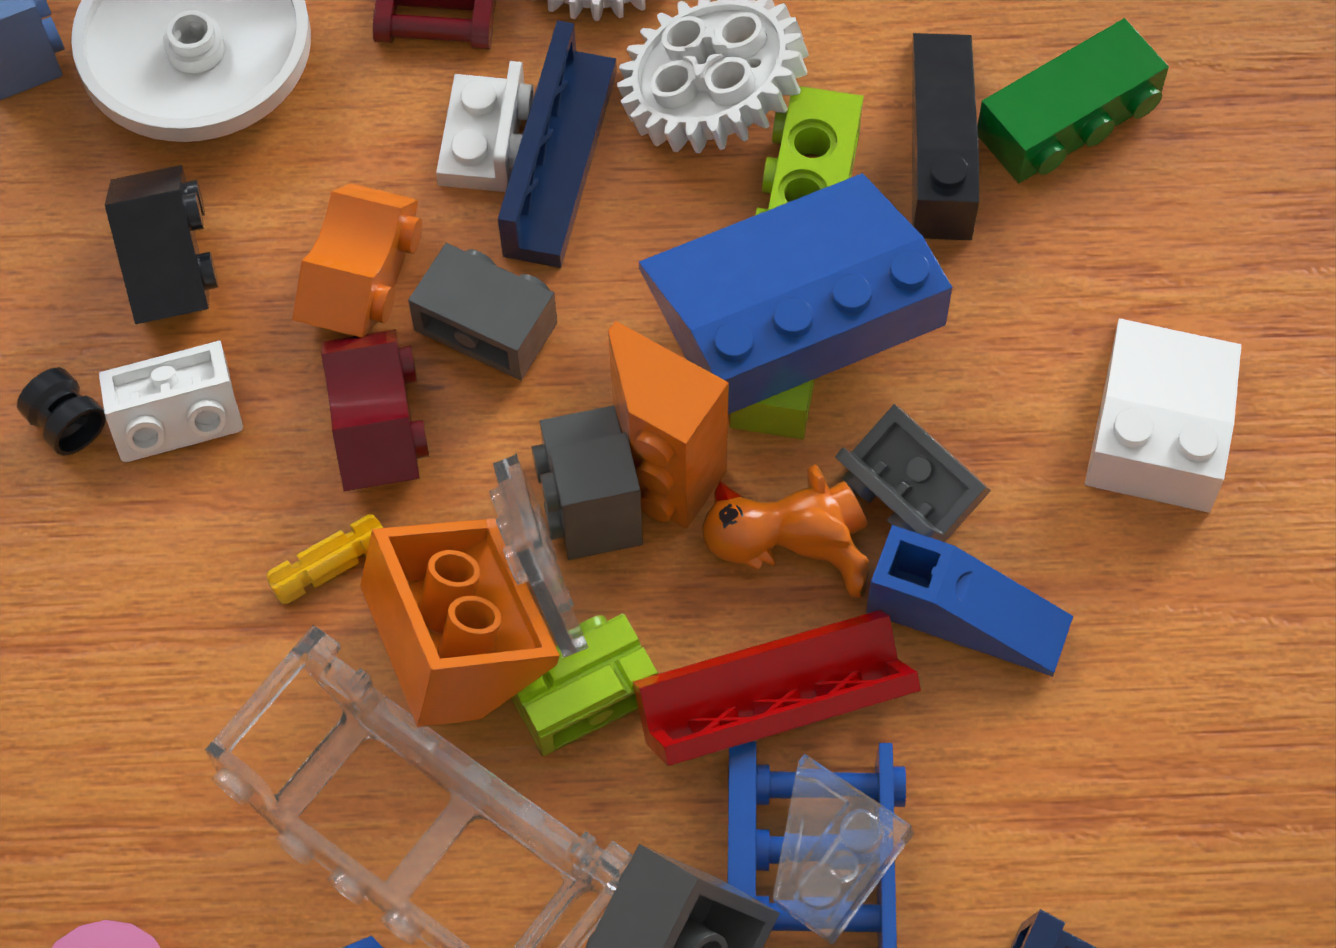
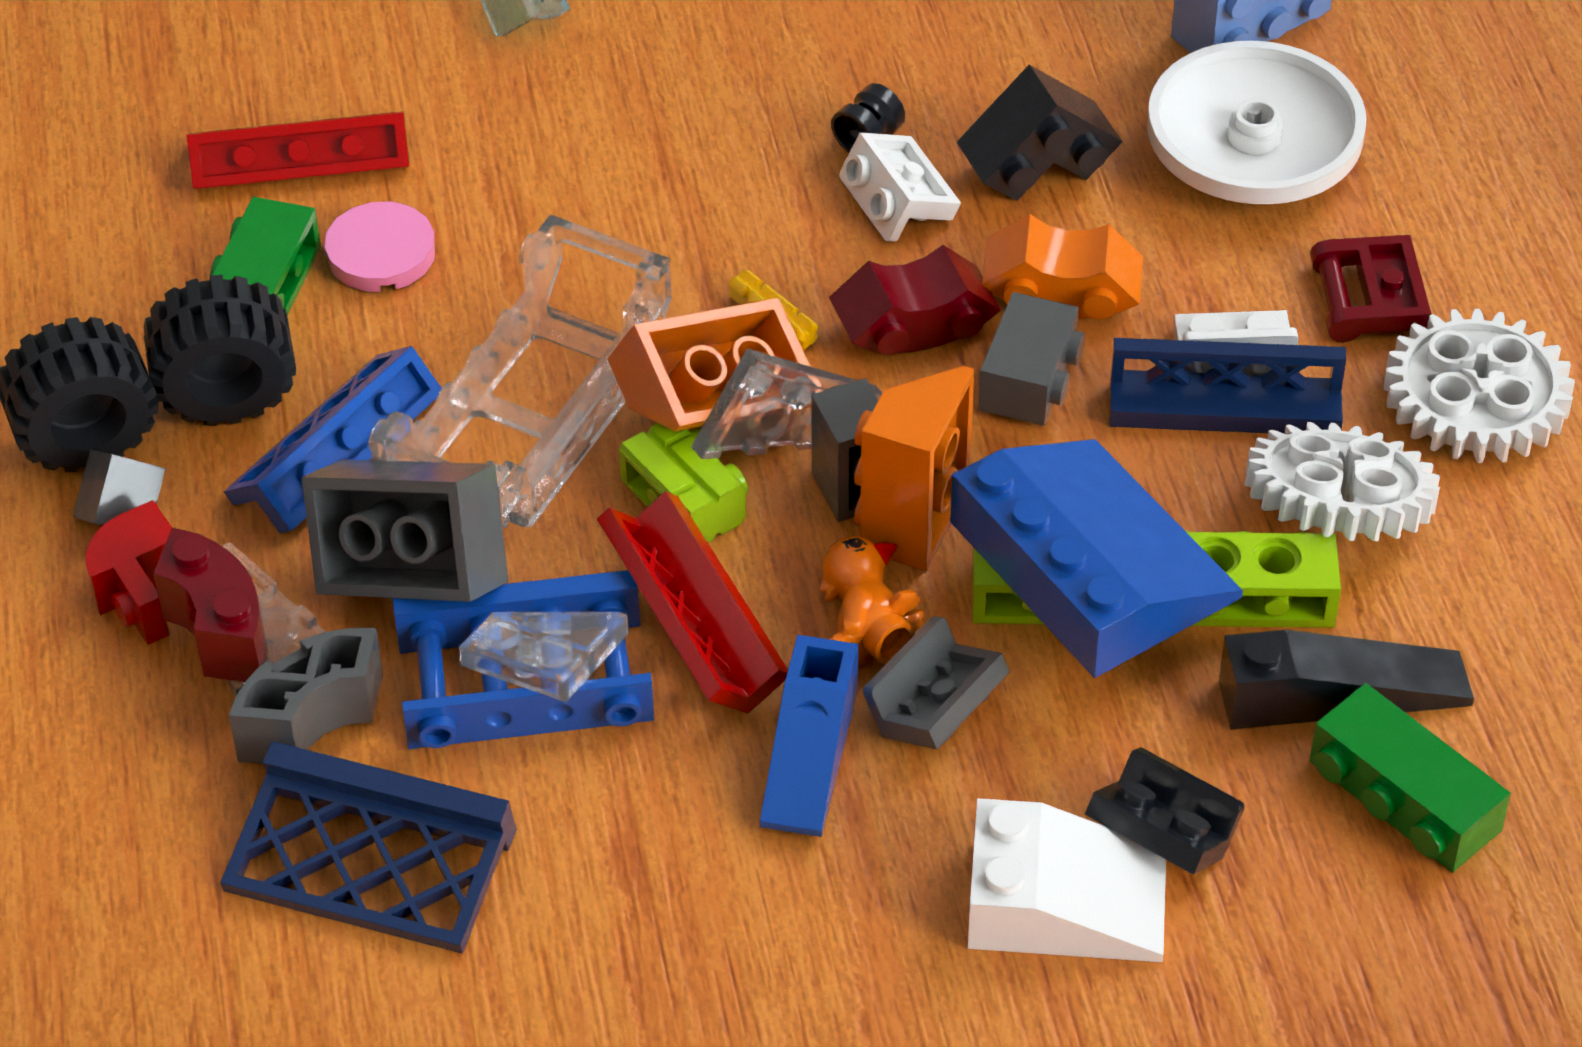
camera: 80 degrees right, 15 degrees down
(1097, 304) = (1168, 811): none -> black bracket

